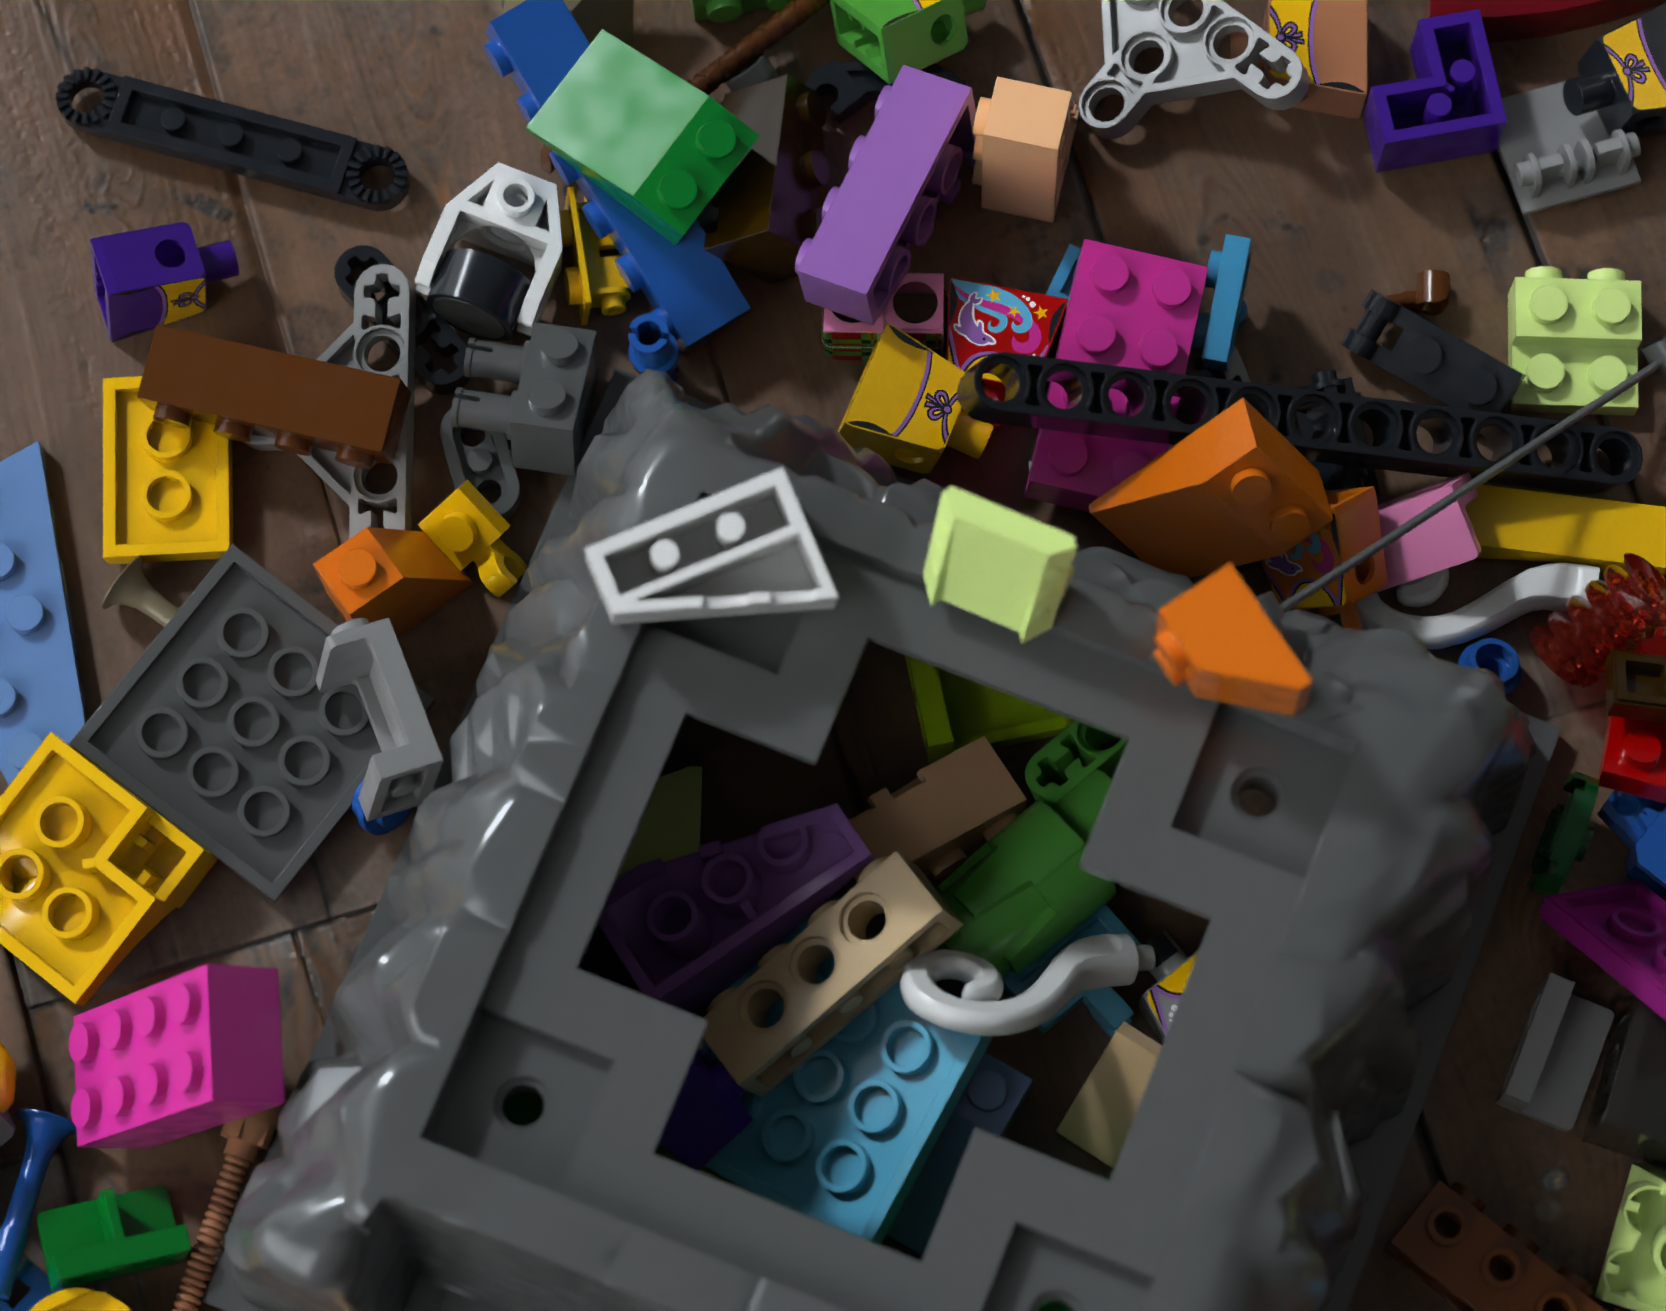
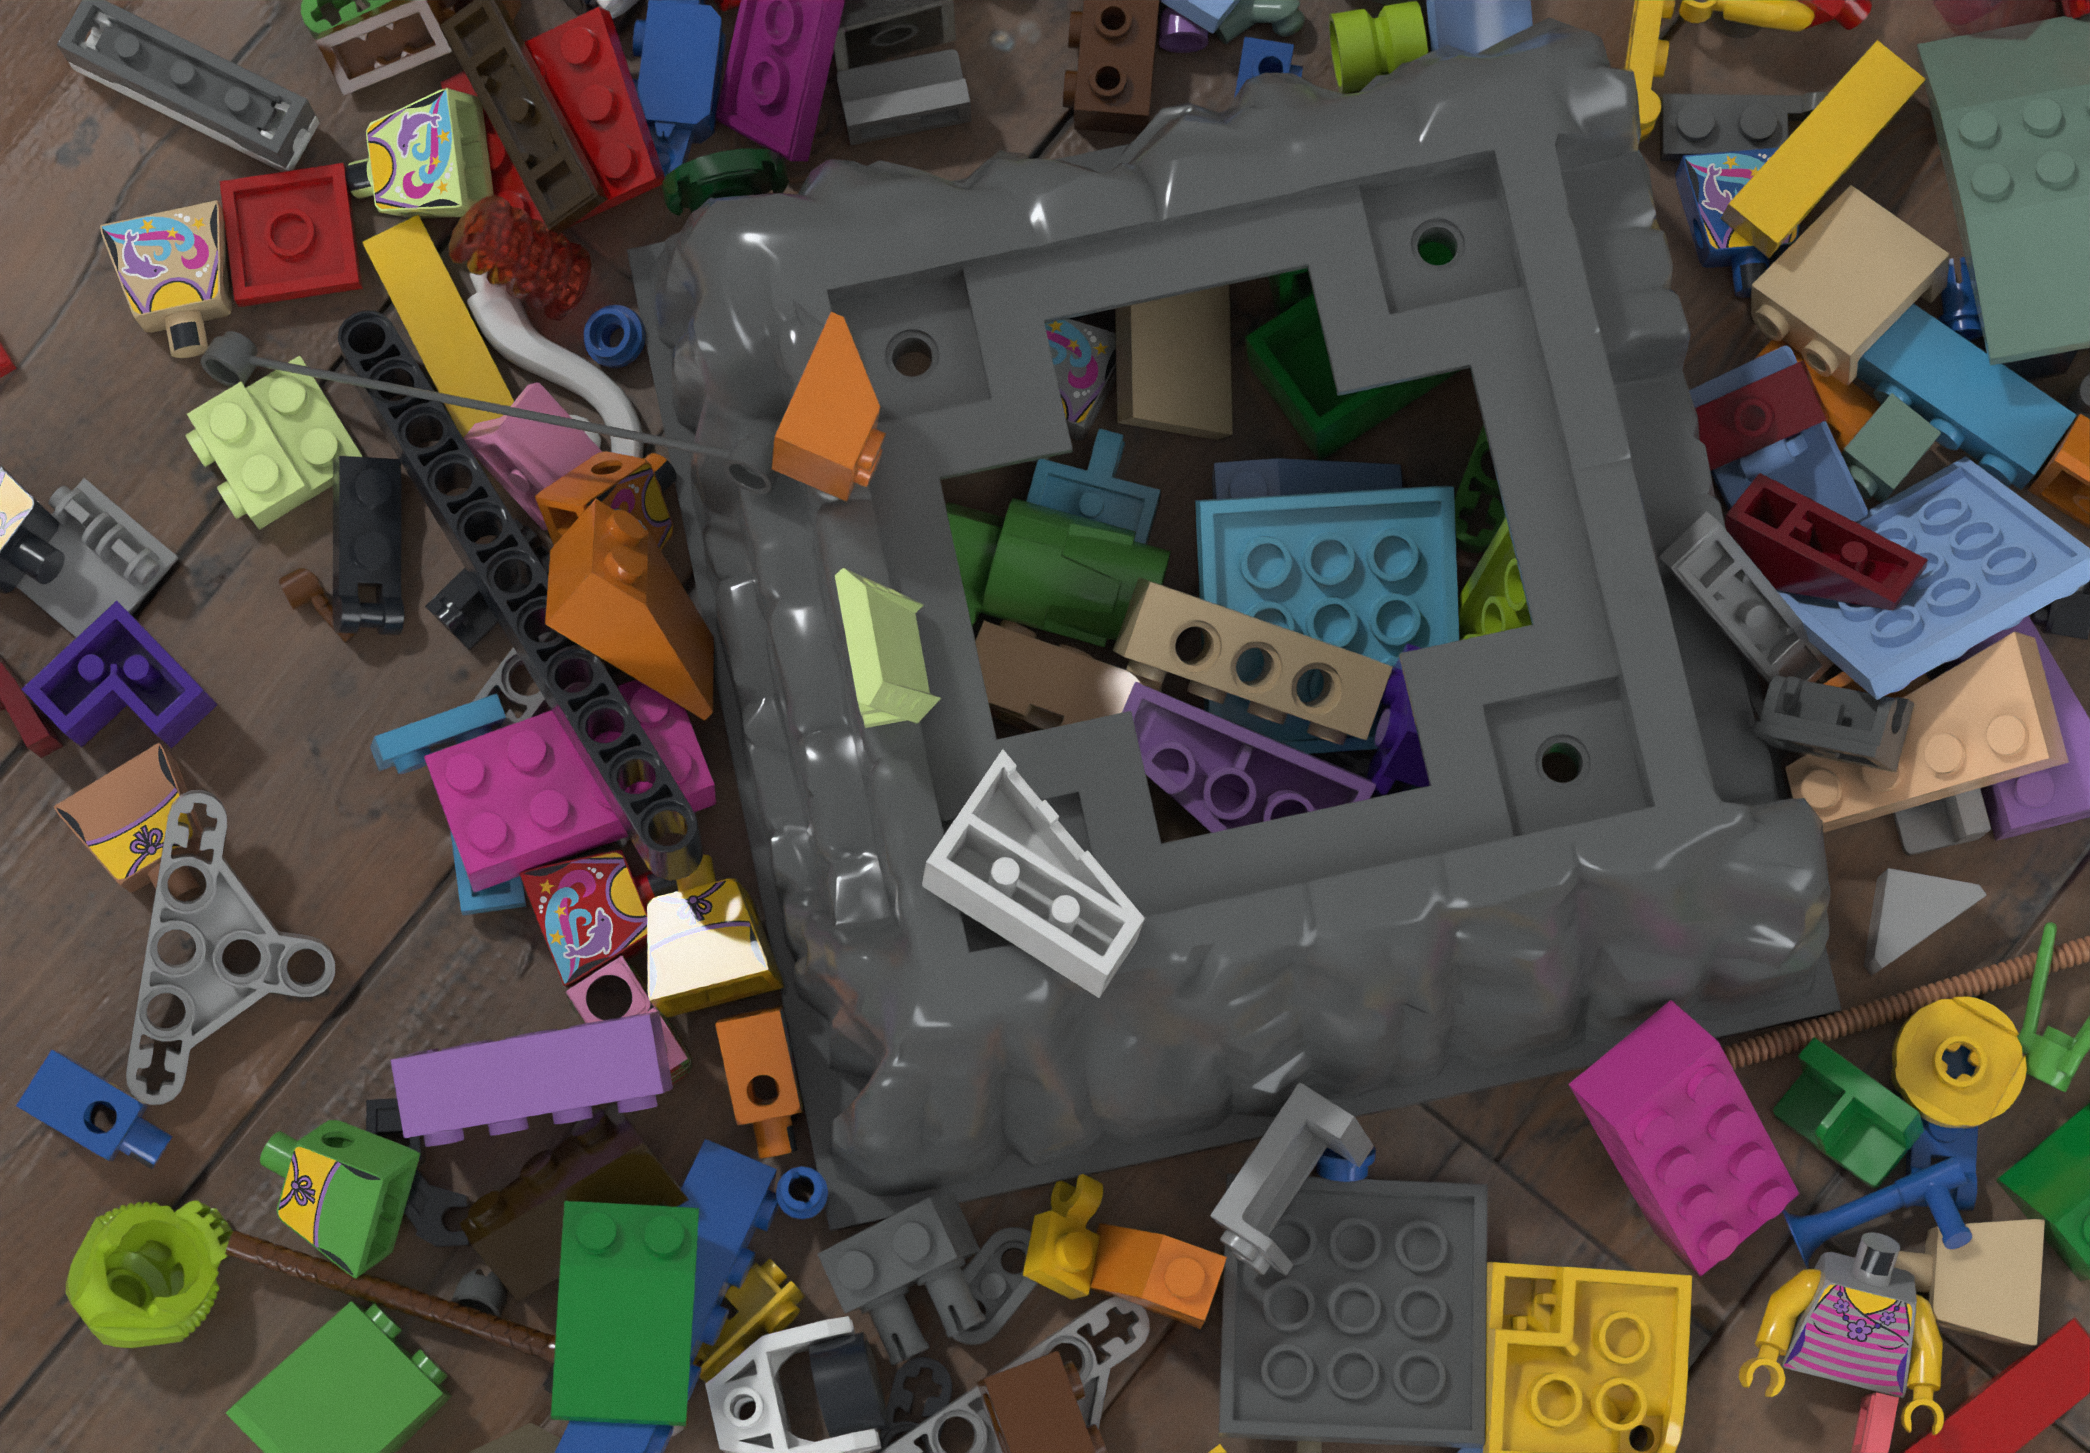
camera: 125 degrees left, 5 degrees up
(774, 373) = (755, 1046): none -> orange torso
(1023, 147) = (392, 999): light nougat wedge -> none
(1080, 967) = (1096, 479): white plant -> none

